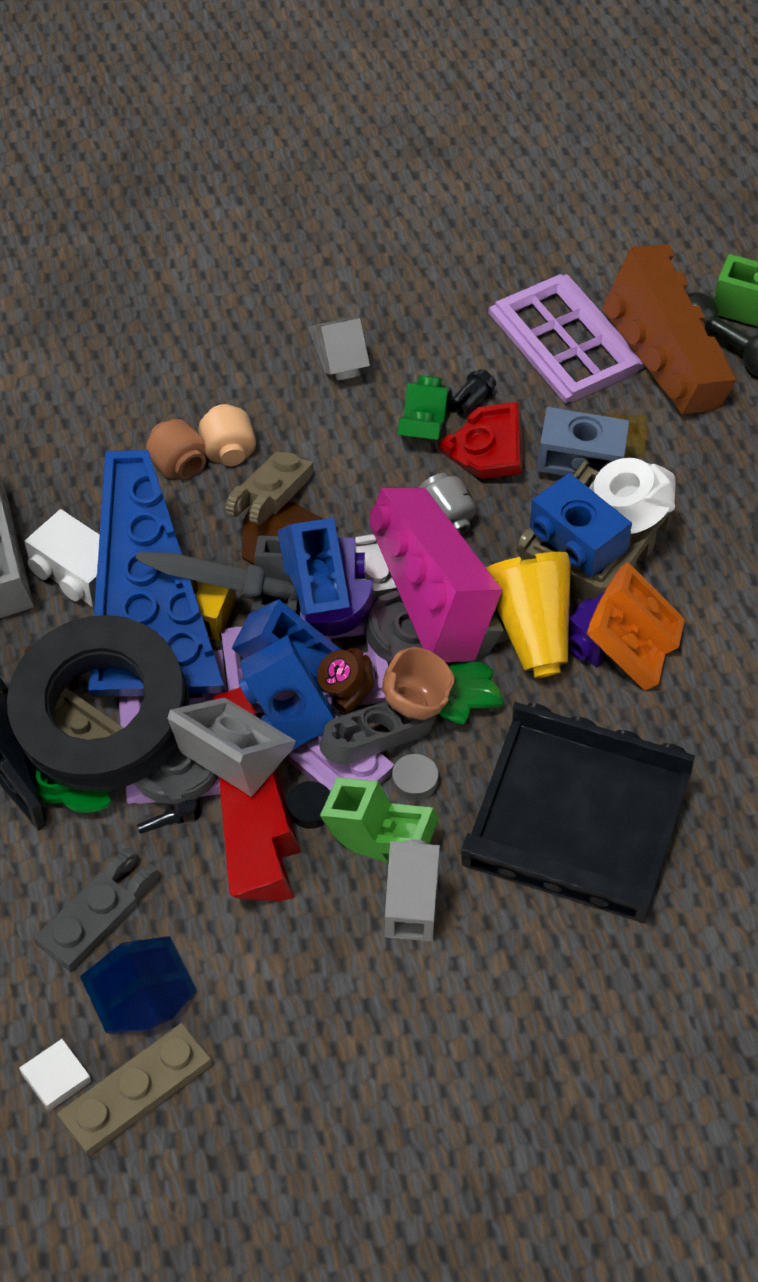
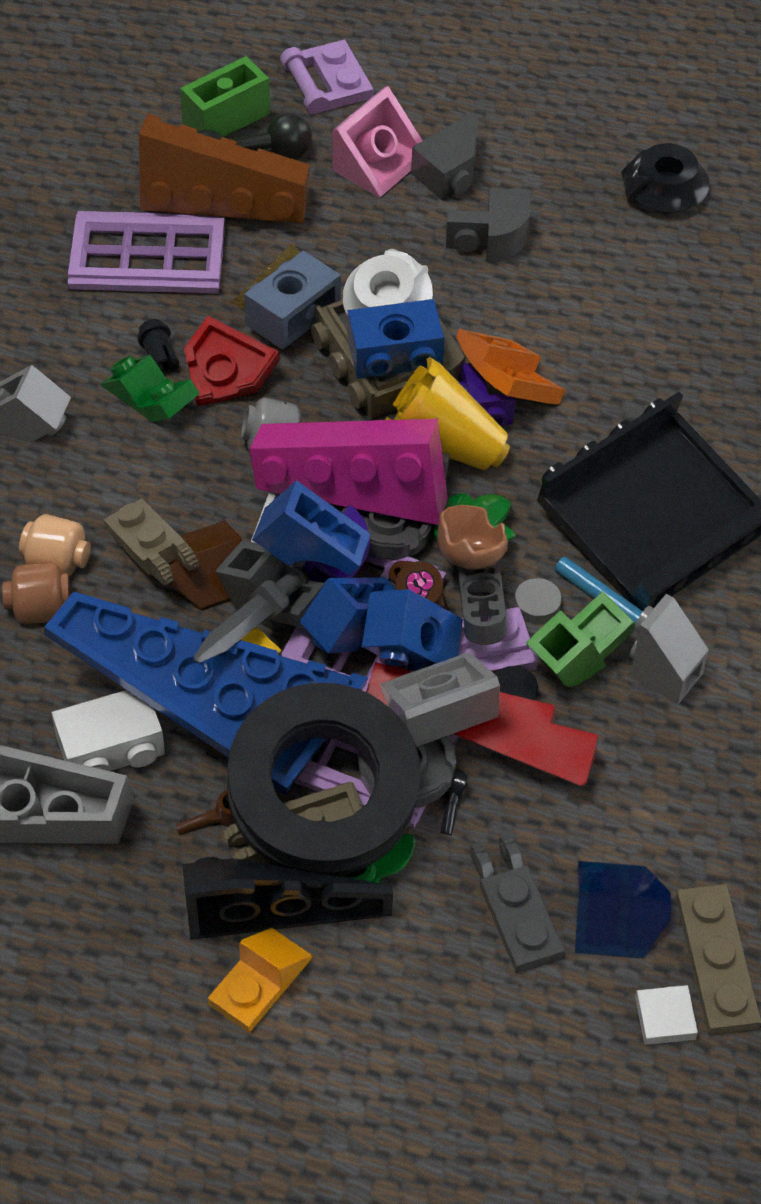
camera: 60 degrees left, 0 degrees up
(456, 835) = (593, 586): none -> dark azure bar

